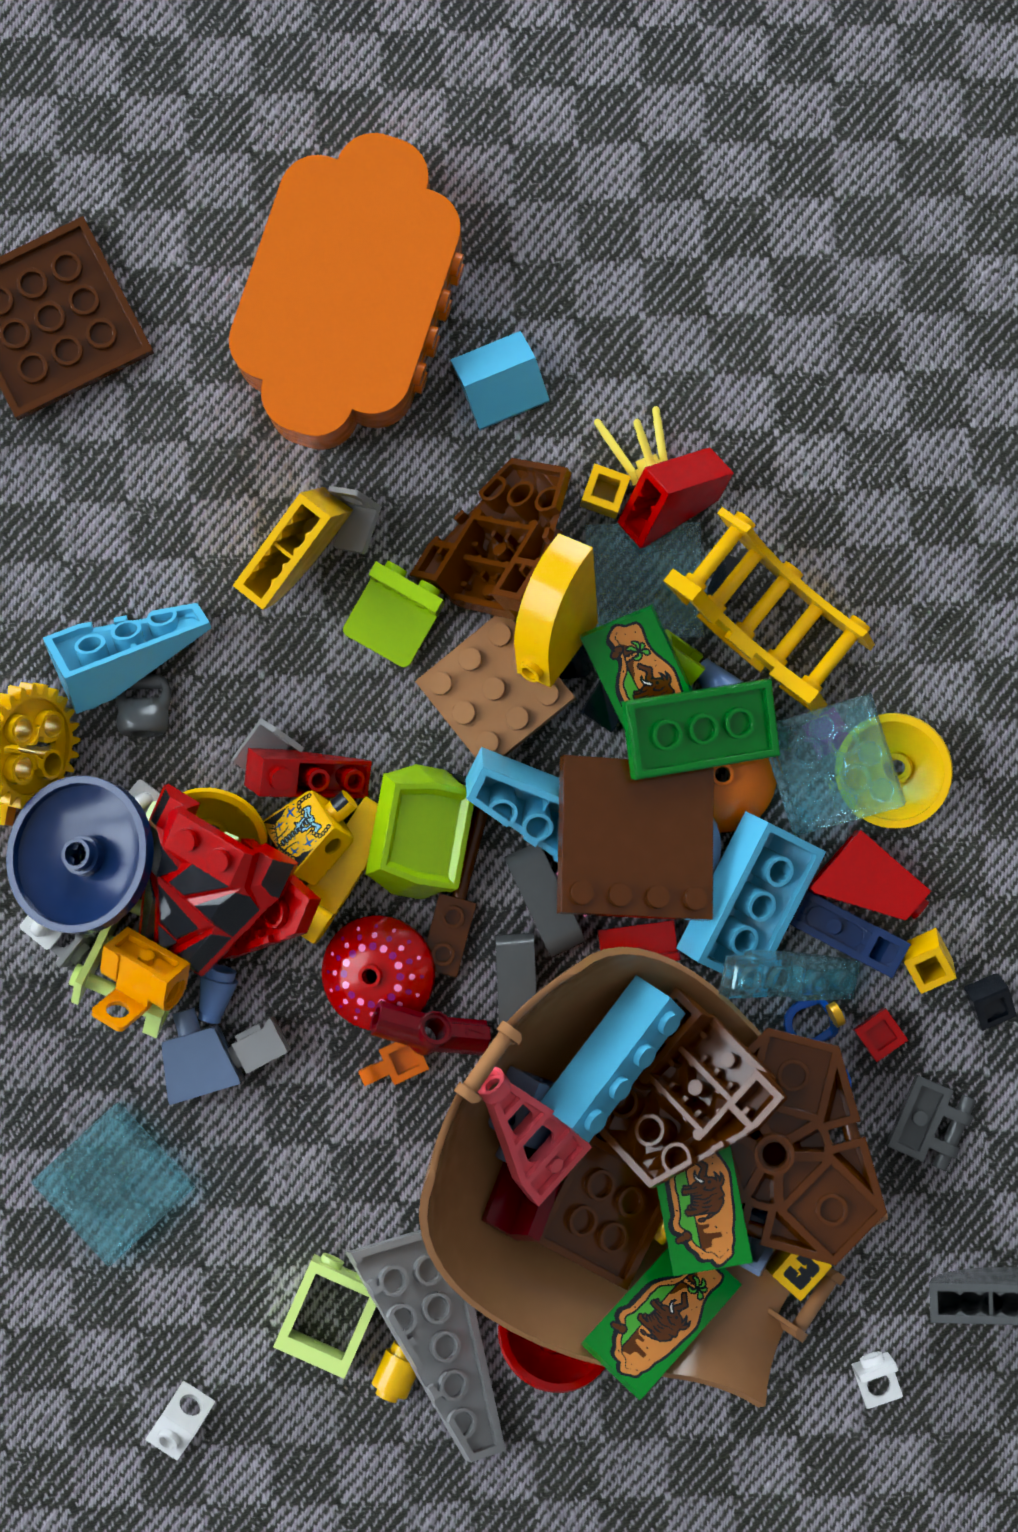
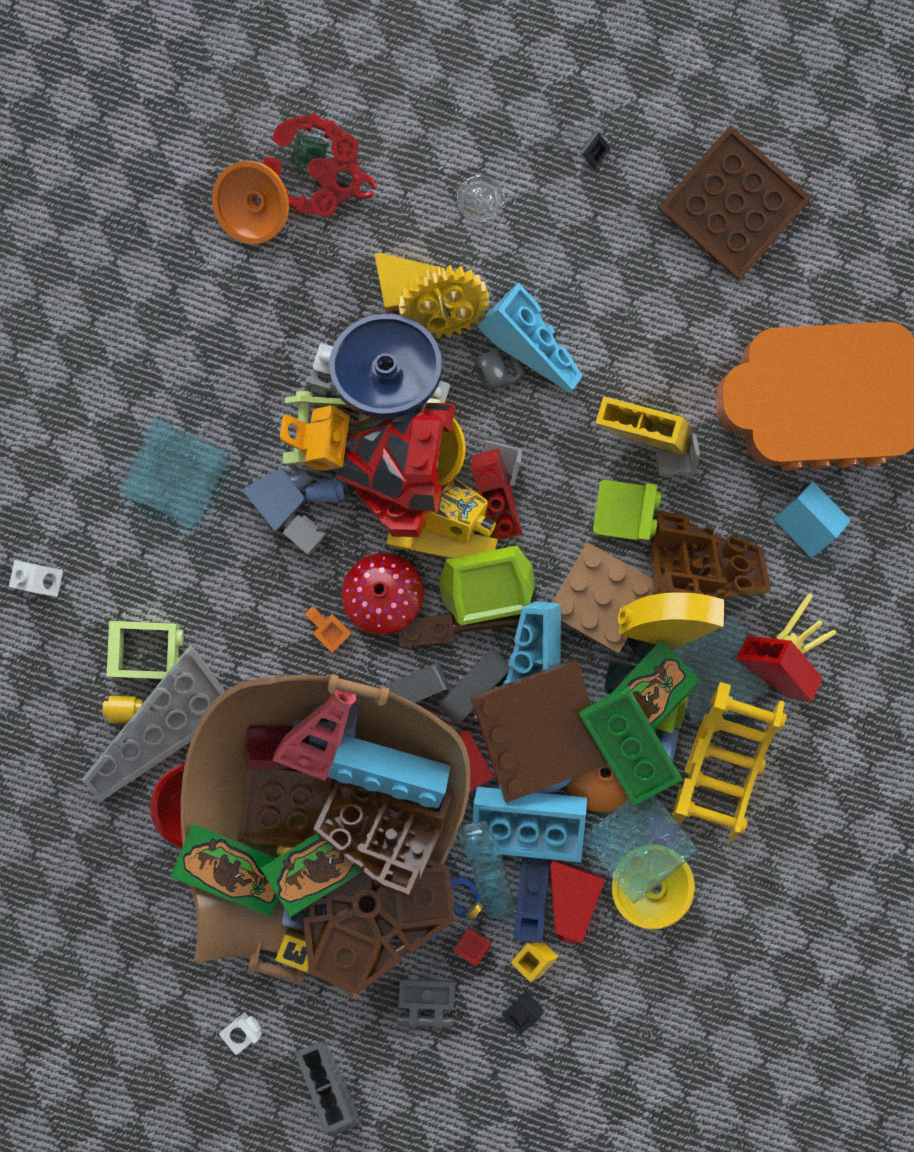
camera: 70 degrees right, 0 degrees up
(408, 1028) = (354, 628): dark red piece -> none
(605, 491) = (764, 619): yellow brick -> none

